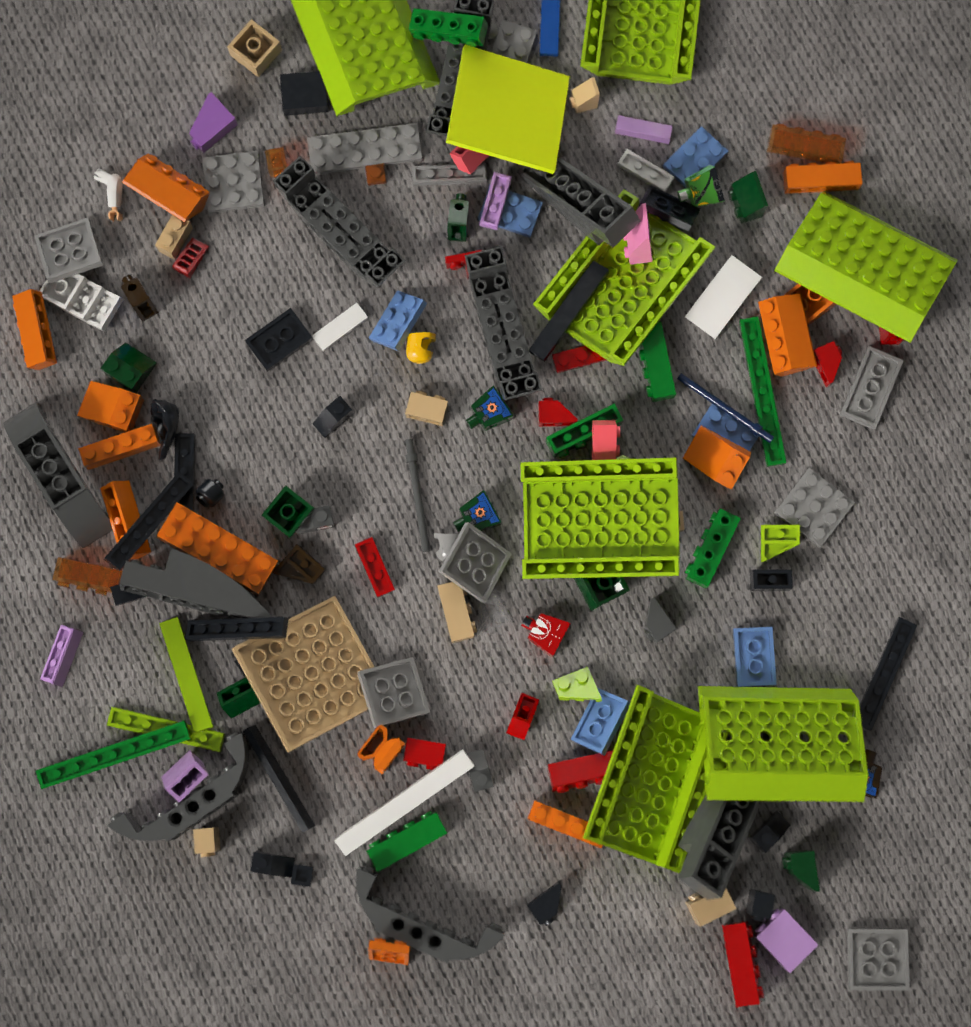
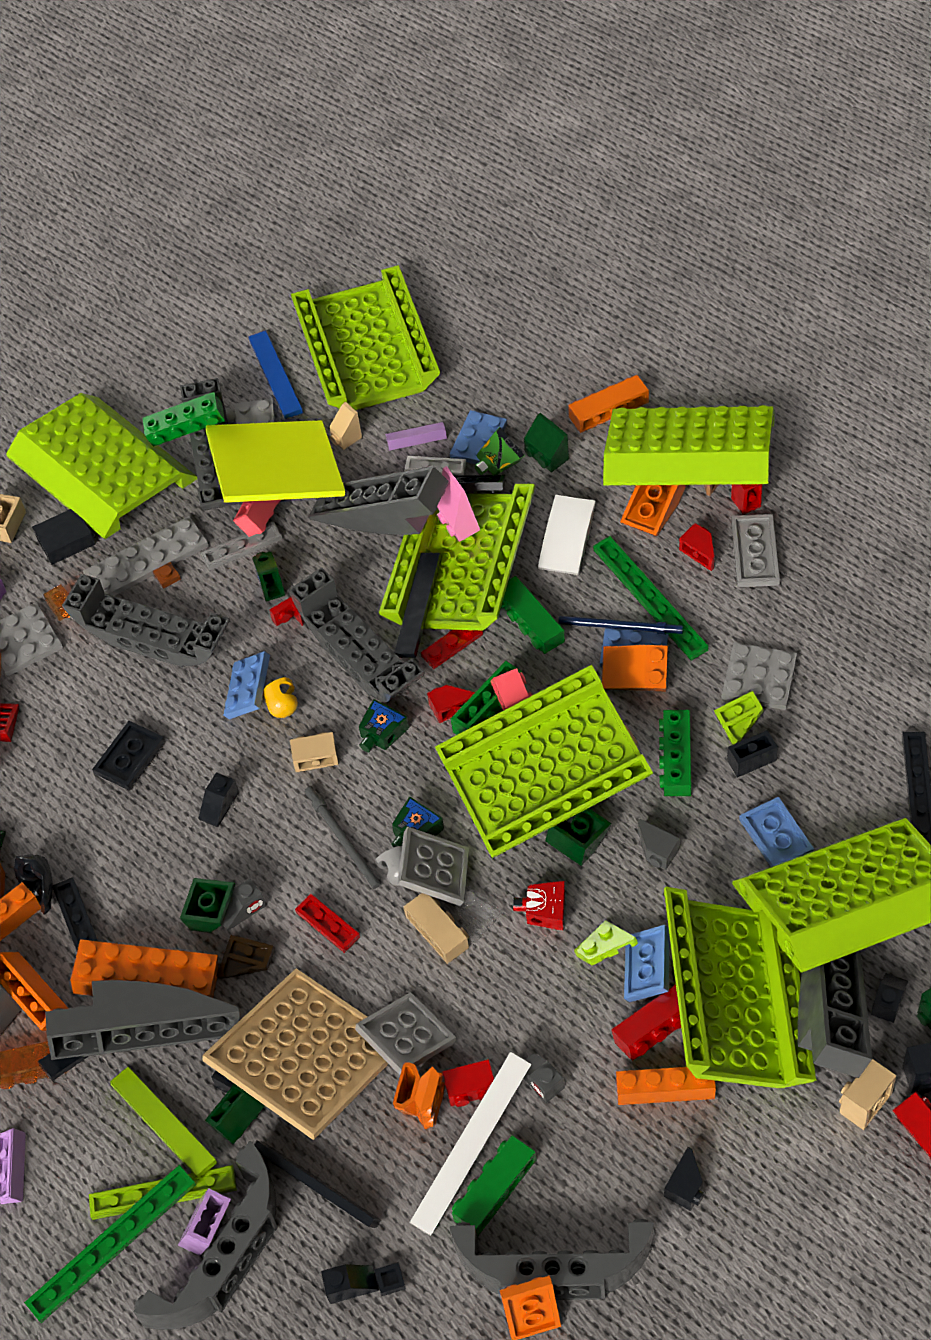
camera: 15 degrees left, 25 degrees down
(148, 521) = (55, 974): black plate -> none
(206, 841) = (260, 1285): tan brick -> none
(210, 493) = (114, 926): black head -> none
(237, 629) = (200, 1038): black plate -> none
(340, 327) = (189, 719): white tile -> none
(495, 201) = (298, 545): lavender tile -> none
(518, 213) = (317, 550): medium blue plate -> none
(522, 716) = (560, 999): red slope -> none
(787, 334) = (647, 536): orange slope -> none
(806, 144) = (576, 384): clear orange brick -> none

